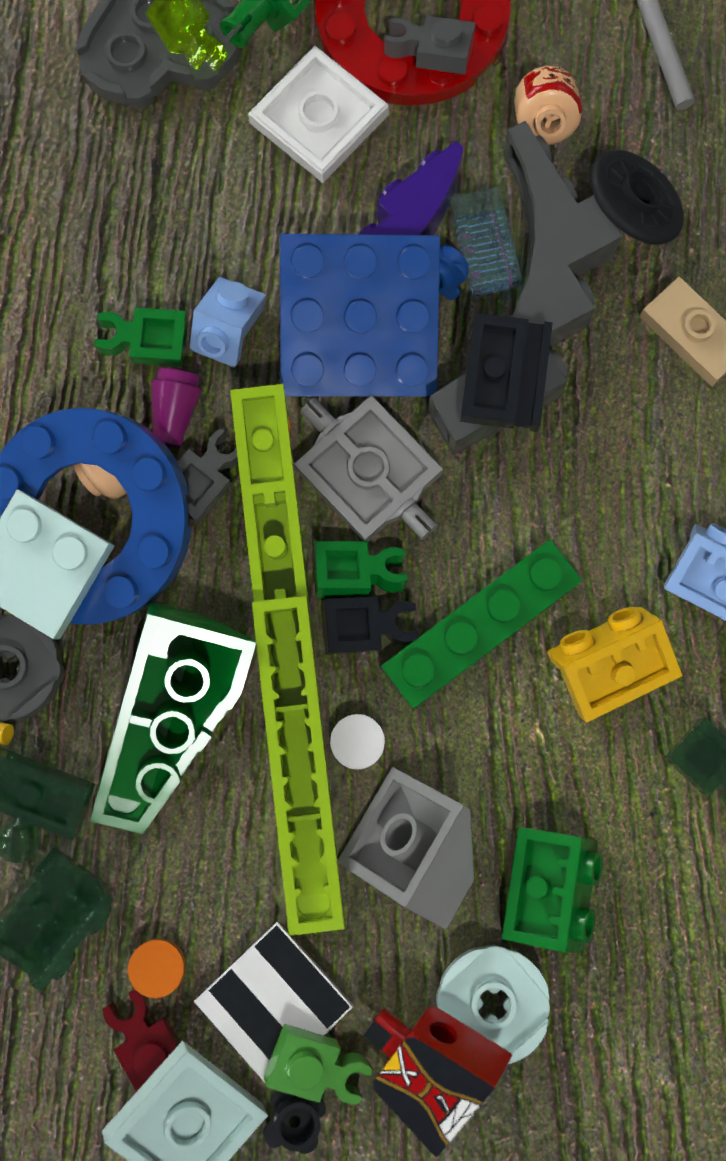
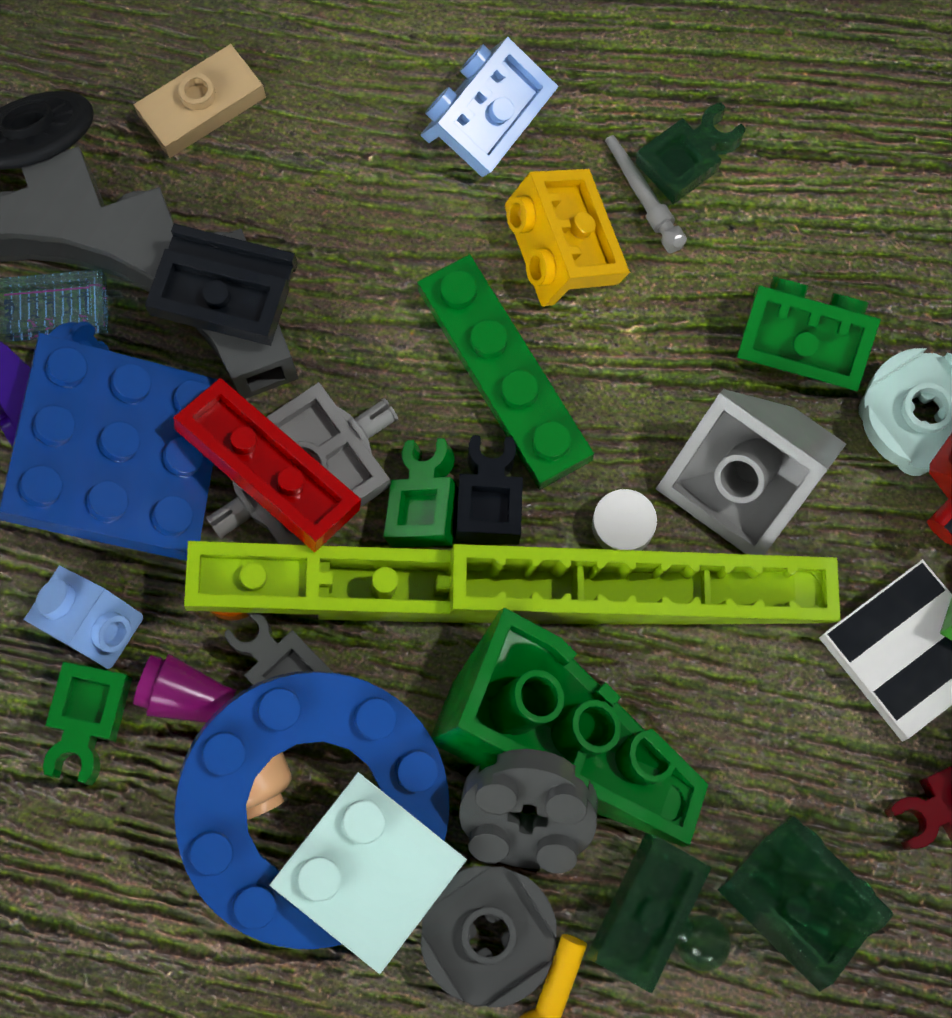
camera: 85 degrees left, 5 degrees down
(96, 684) = (546, 840): none -> dark grey plate
(157, 968) = (866, 781): orange tile -> none
(356, 435) = (267, 464): none -> red plate
(651, 745) = (657, 214): none -> light grey piece

